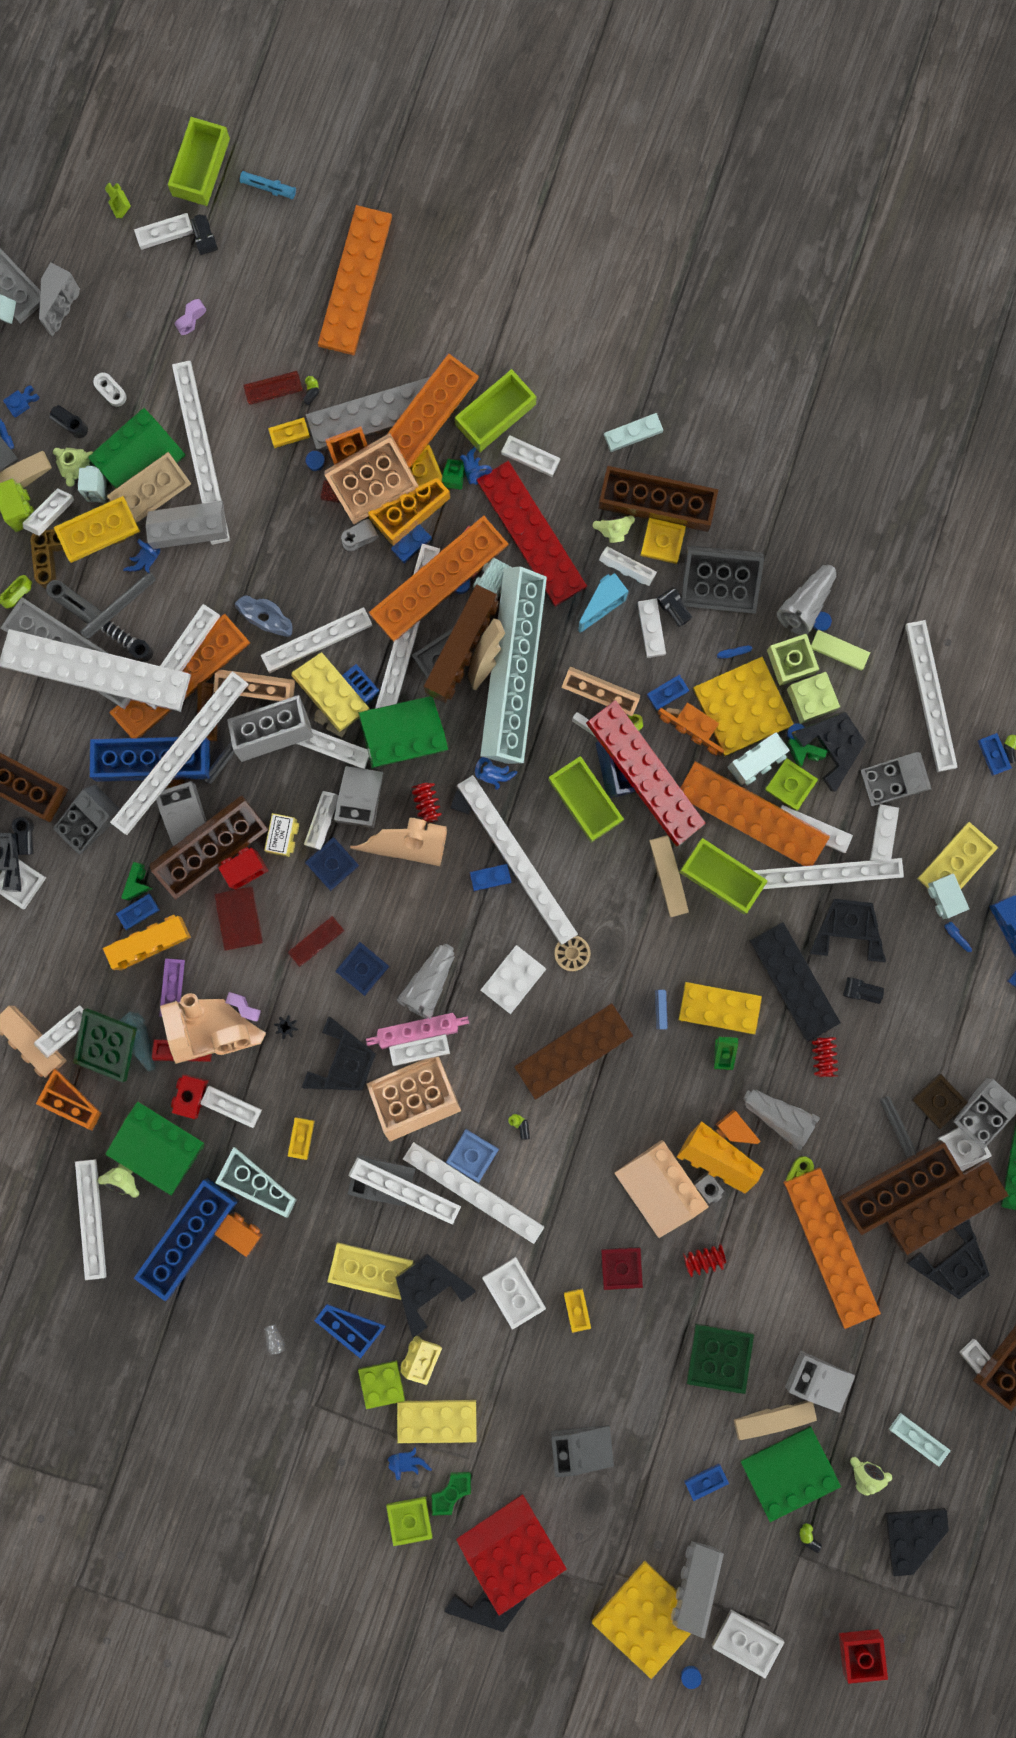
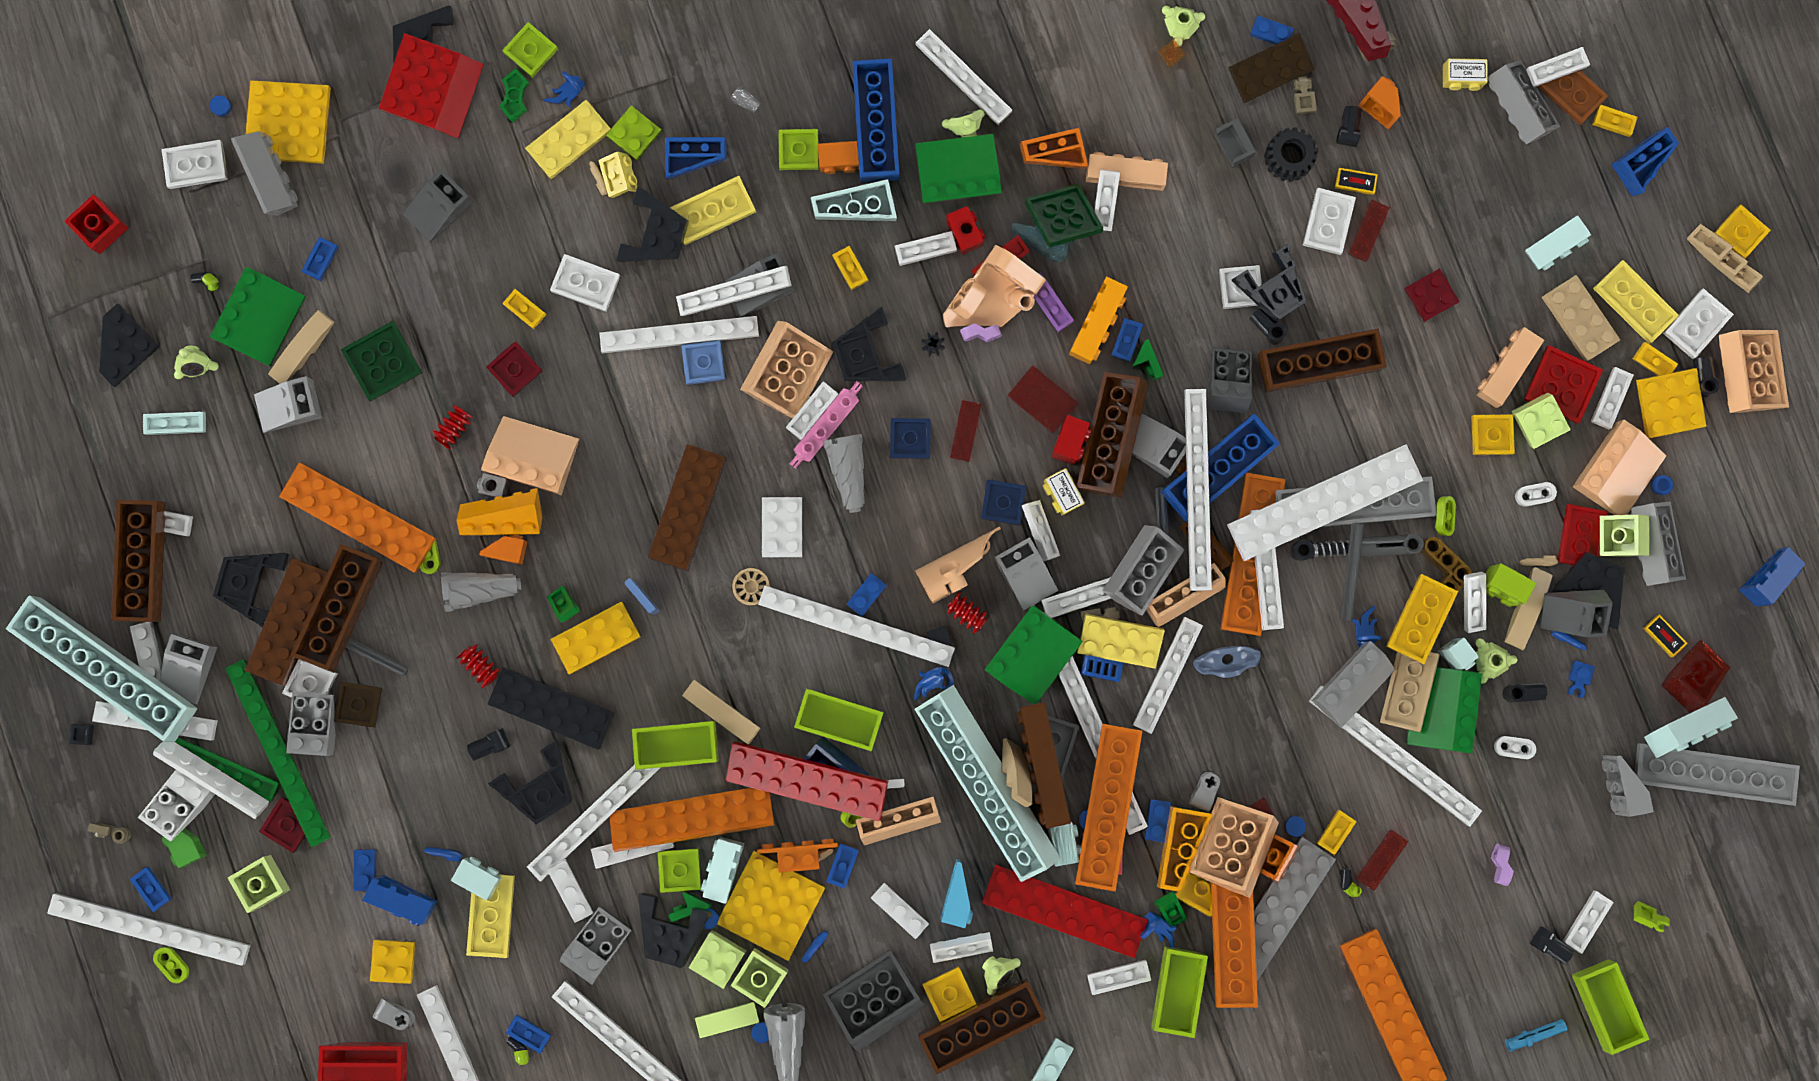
camera: 135 degrees right, 0 degrees up
(264, 1265) = (798, 149): none -> lime plate
(437, 1369) = (599, 178): none -> tan piece
(521, 1124) = (683, 417): arm -> none
(671, 602) = (899, 945): black piece -> none

